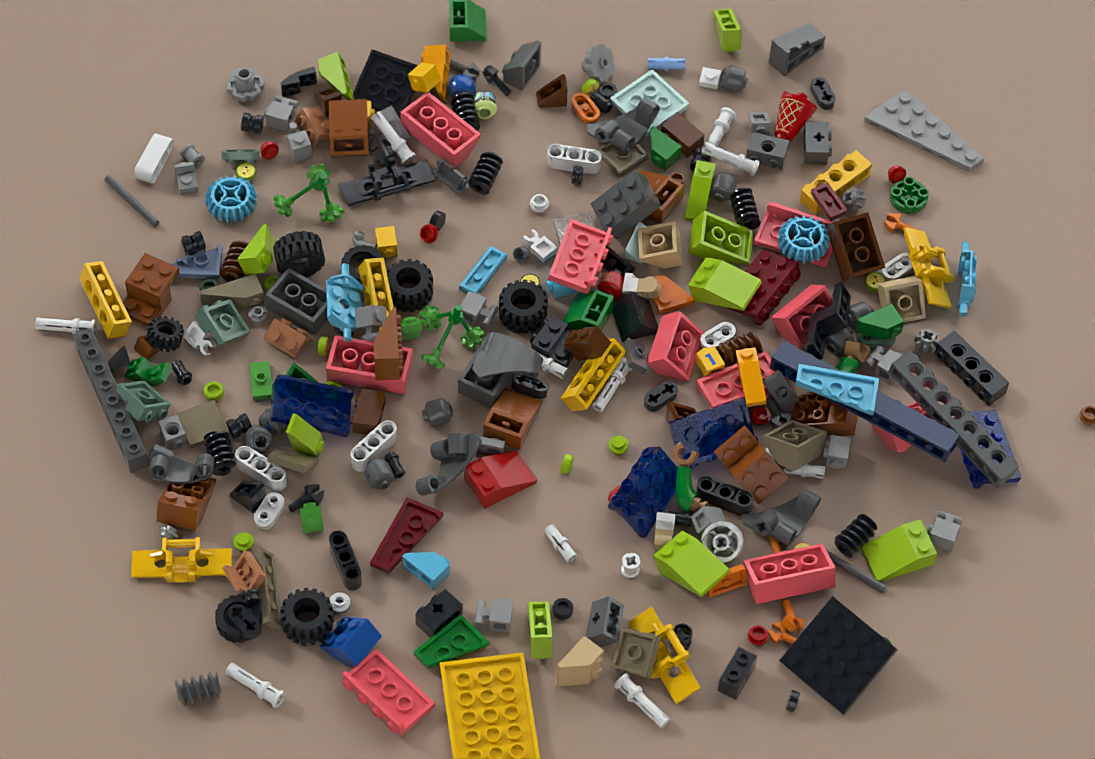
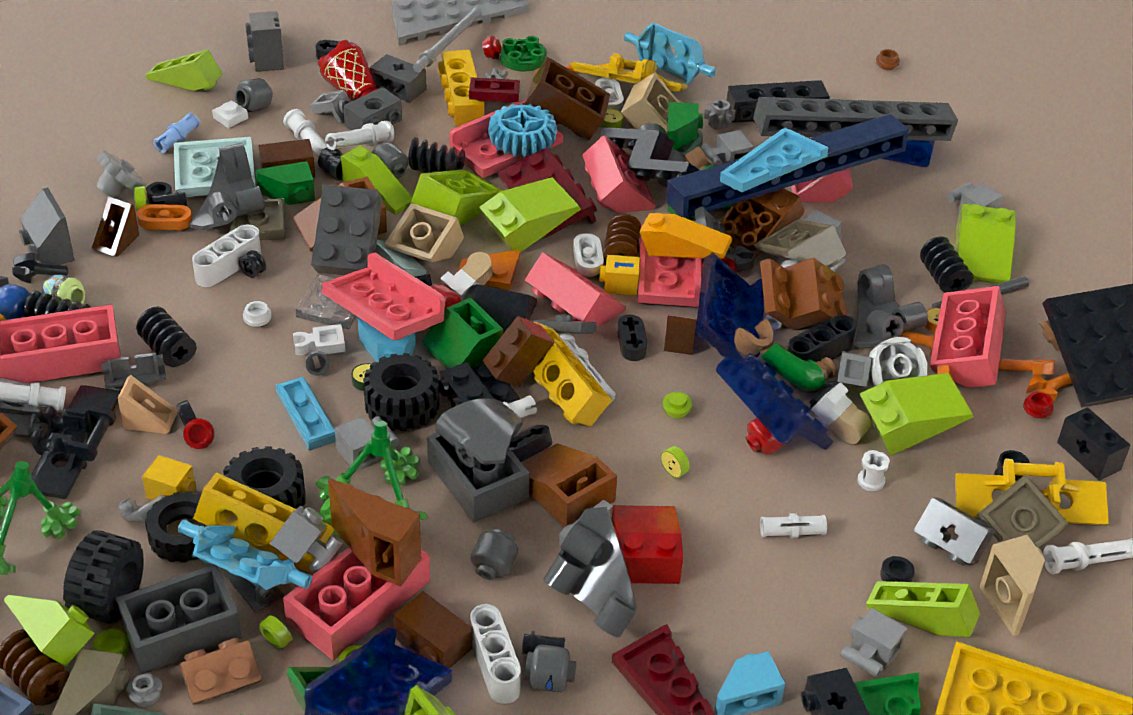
camera: 60 degrees left, 15 degrees down
(427, 197) = (144, 409): none -> light nougat slope
(840, 146) = (428, 57): none -> light grey bar

